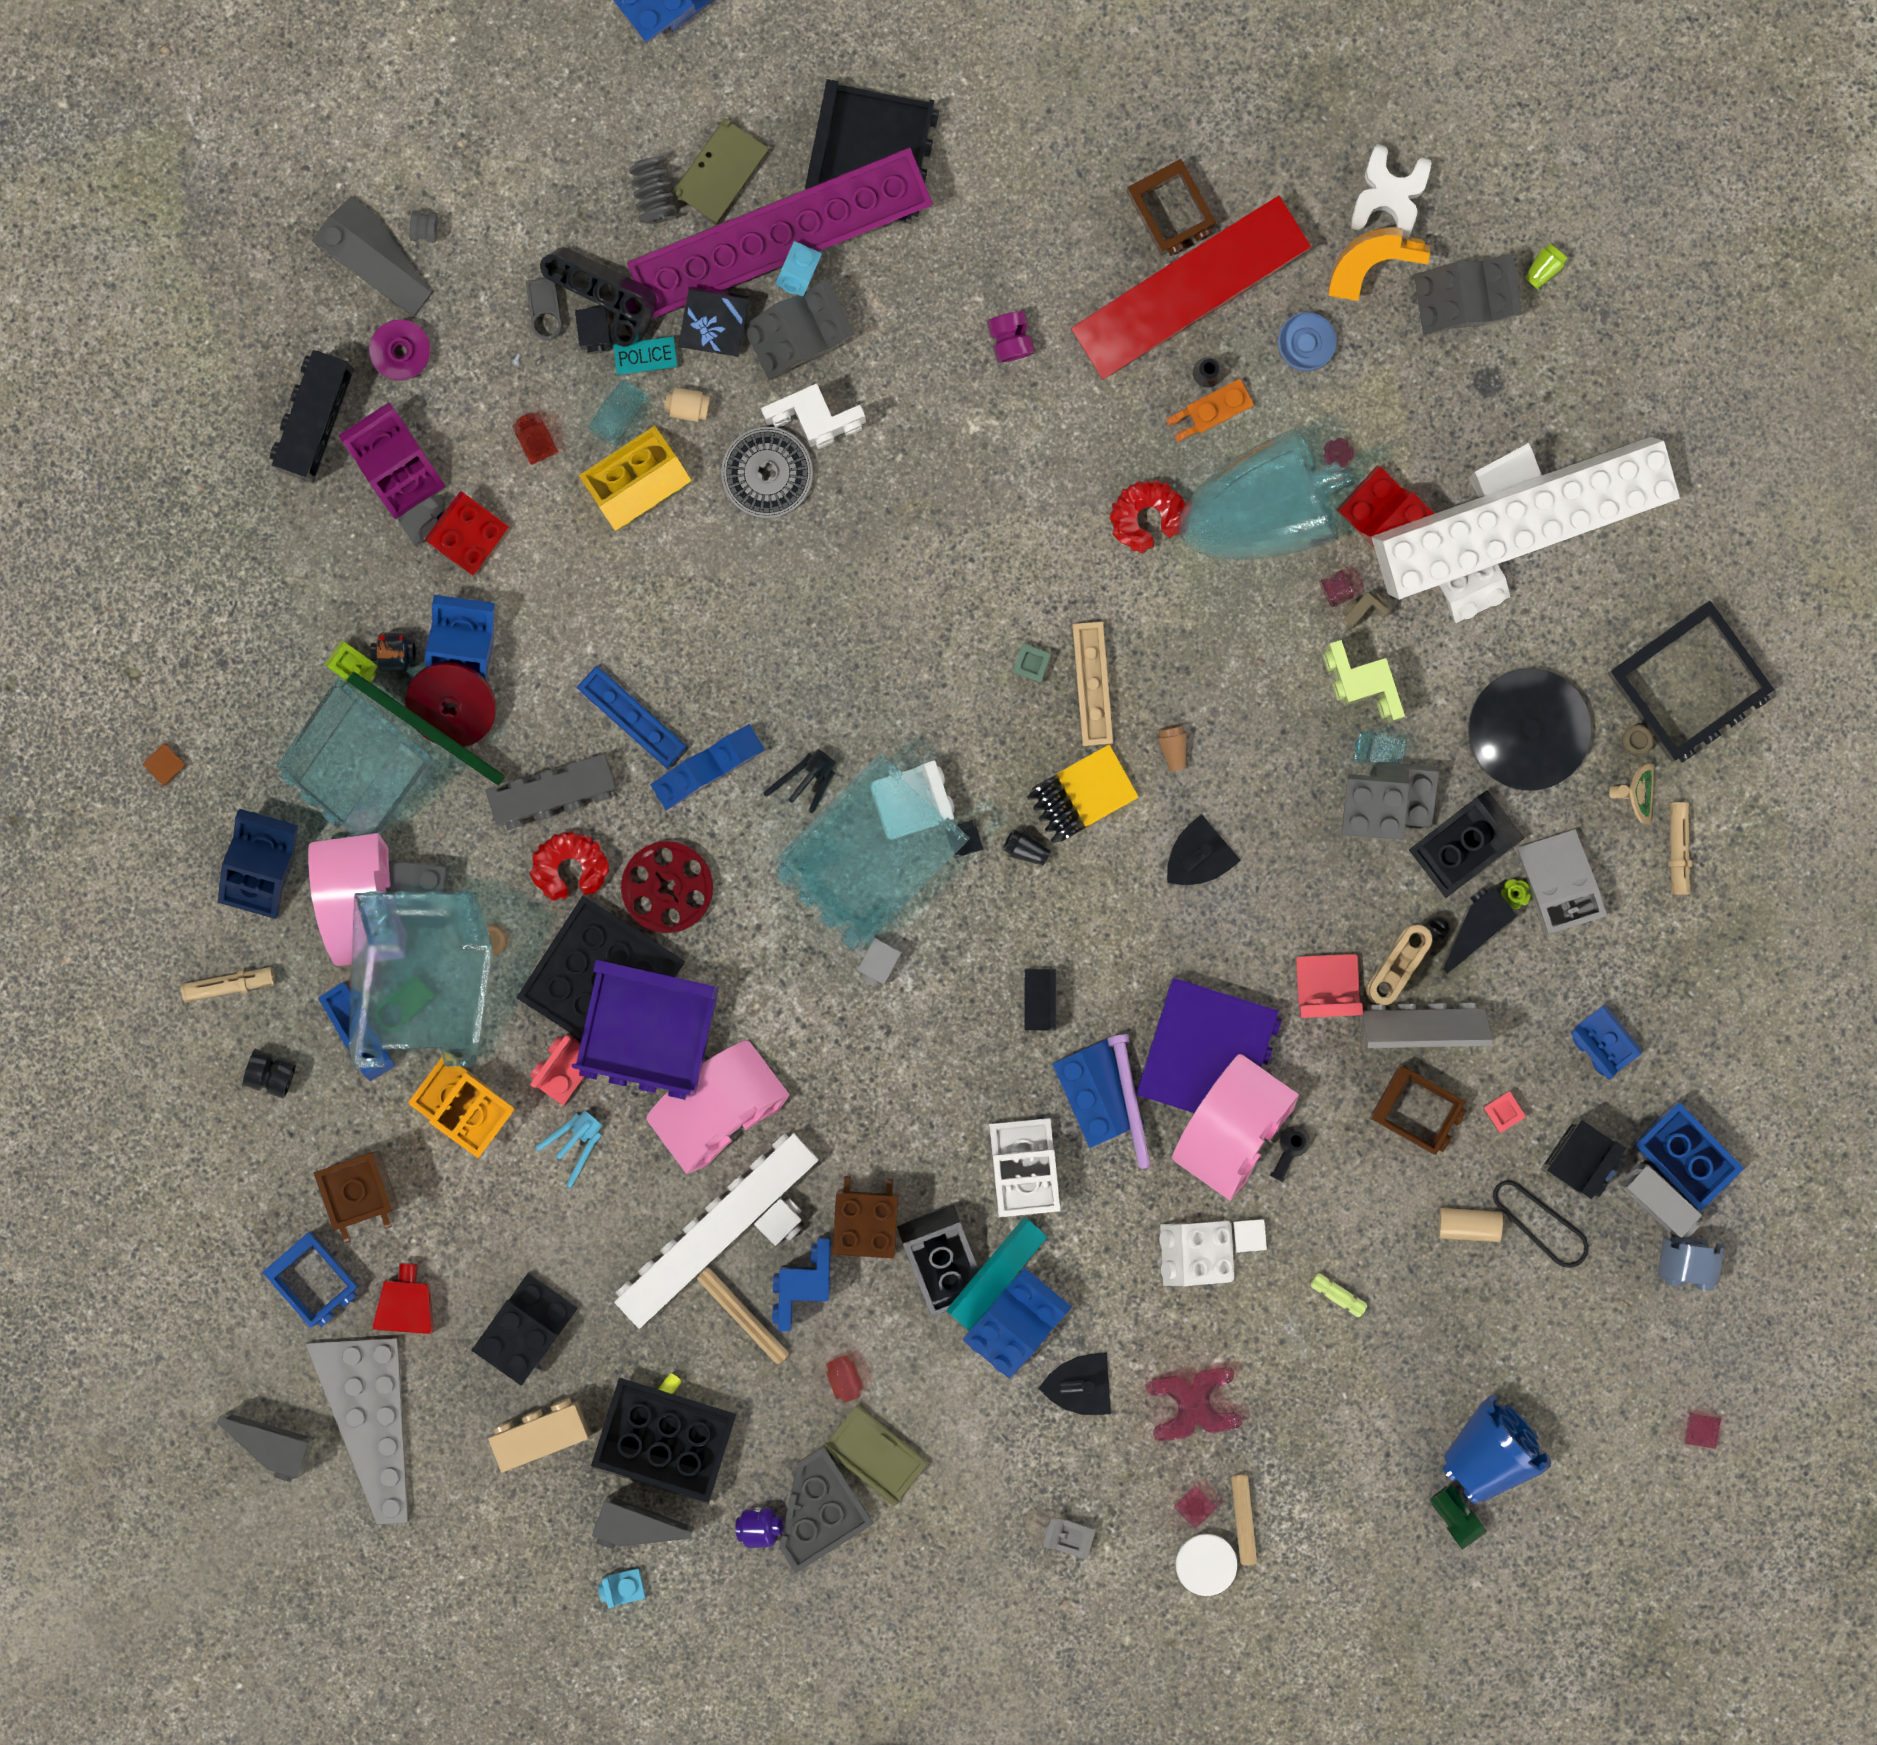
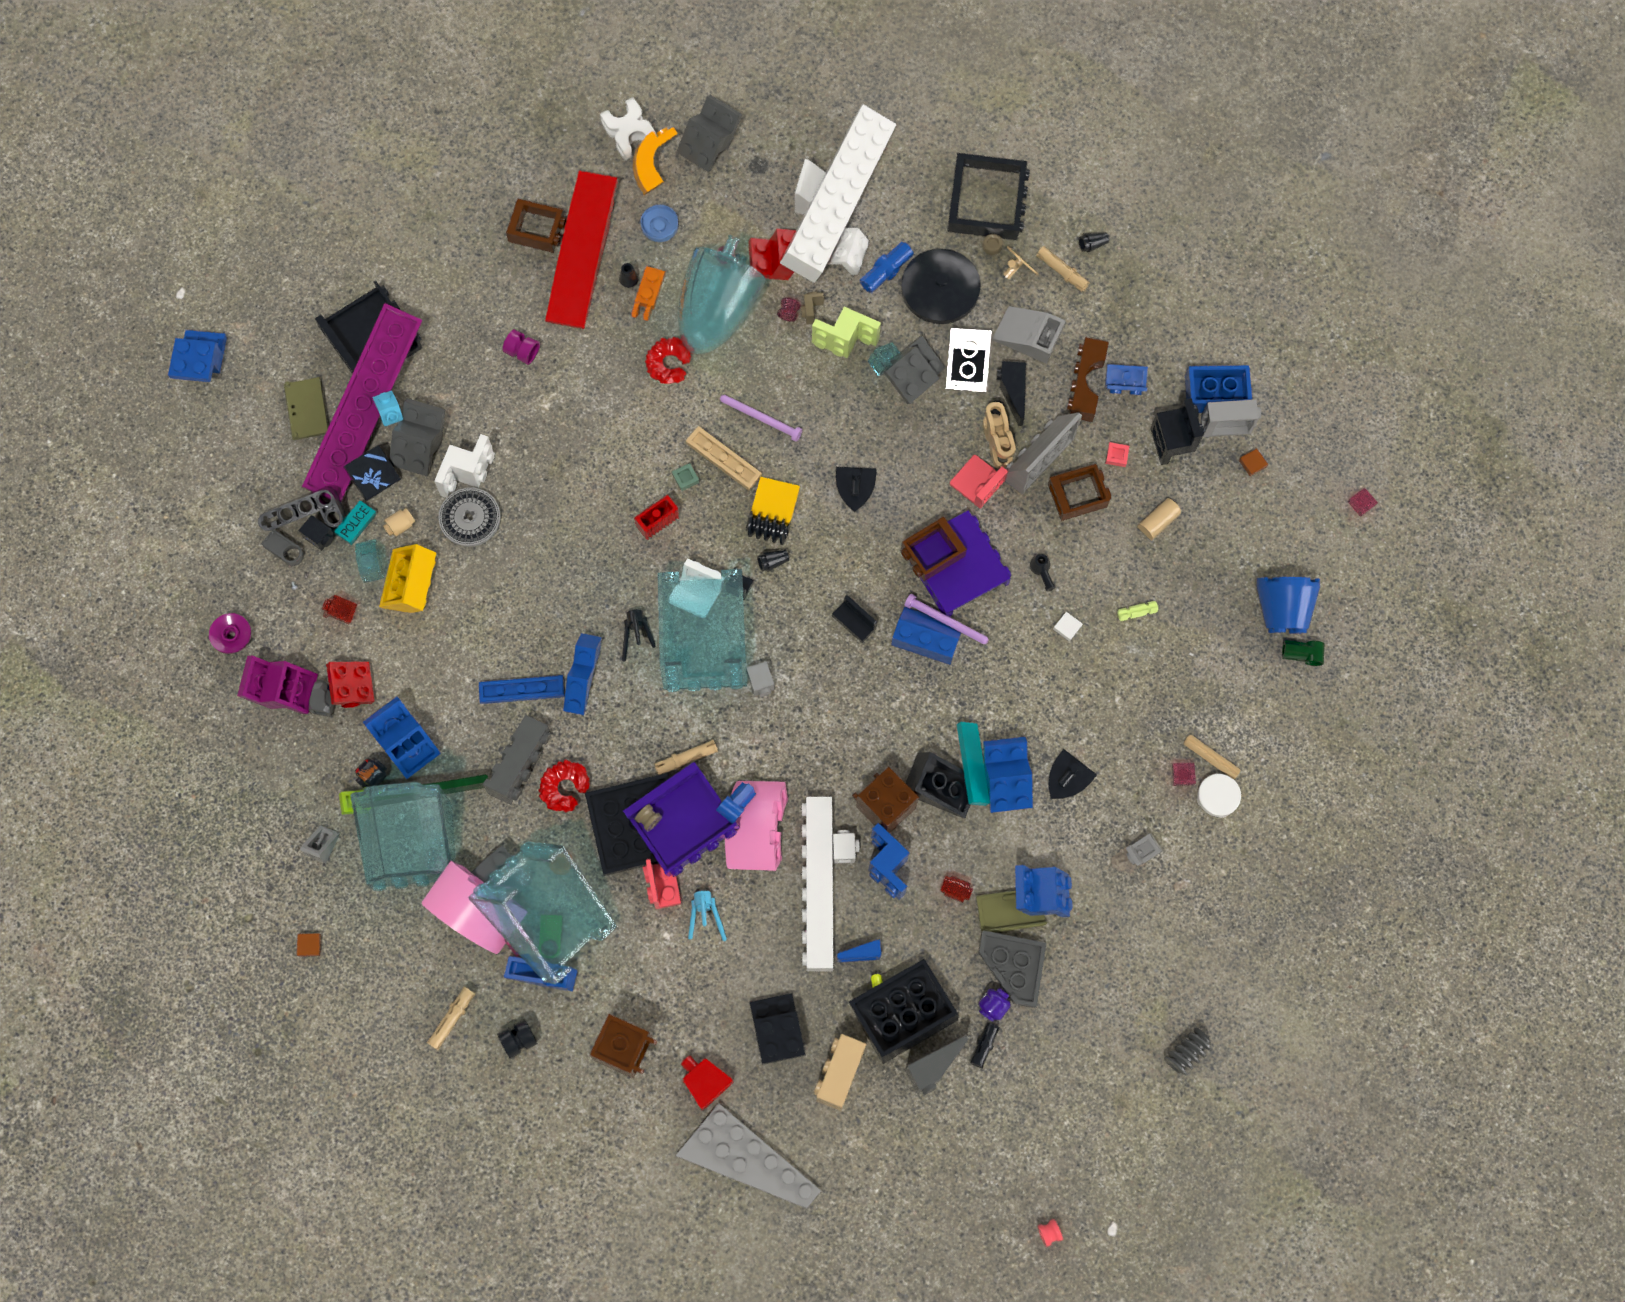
camera: 50 degrees left, 15 degrees down
(257, 863) = (405, 941): dark blue bracket -> none
(271, 1446) = (715, 1222): dark grey slope -> none
(275, 673) = (320, 844): none -> light grey slope
(293, 1254) = (622, 1118): blue window -> none
(312, 416) = (215, 703): black brick -> none
(366, 248) = (168, 606): dark grey wedge -> none
(423, 226) = (184, 567): dark grey wheel -> none
(457, 684) = (420, 752): dark red piece -> none
(461, 1107) = (631, 952): light orange bracket -> none
(614, 992) = (648, 817): none -> dark tan wheel
(621, 1587) = (961, 1107): medium azure bracket -> none
(651, 190) = (281, 447): dark grey piece -> none
(682, 887) = (618, 739): dark red wedge -> none
(688, 1344) = (865, 952): none -> blue slope
(705, 1070) = (734, 805): none -> blue piece
(708, 1554) = (984, 1045): none -> black pin
(717, 962) = (686, 757): none -> tan pin
(742, 1315) = (875, 911): tan axle -> none
(921, 1474) = (1043, 891): none -> blue bracket
(953, 679) = (656, 517): none -> red brick
(1024, 1167) = (932, 699): white bracket -> none
(1173, 745) = (791, 448): medium nougat cone -> none
(1181, 679) = (795, 433): none -> lavender bar
(1193, 1404) = (1129, 727): clear pink piece -> none
(1197, 1253) = (1052, 659): white bracket -> none
(1223, 1023) = (949, 537): none -> reddish brown window
(1231, 1126) = (1006, 582): bright pink panel -> none
(1493, 649) = (886, 267): none -> blue piece
(1522, 888) = (1014, 353): lime plate -> none
(1529, 1234) = (1188, 478): black piece -> none
(1532, 1019) = (1093, 357): none -> reddish brown arch
(1545, 266) = (730, 92): lime cone -> none
(1638, 1269) = (1253, 462): none -> dark orange tile
(1690, 1262) = (1273, 431): sand blue brick -> none
(1748, 852) = (1092, 241): none -> black cone

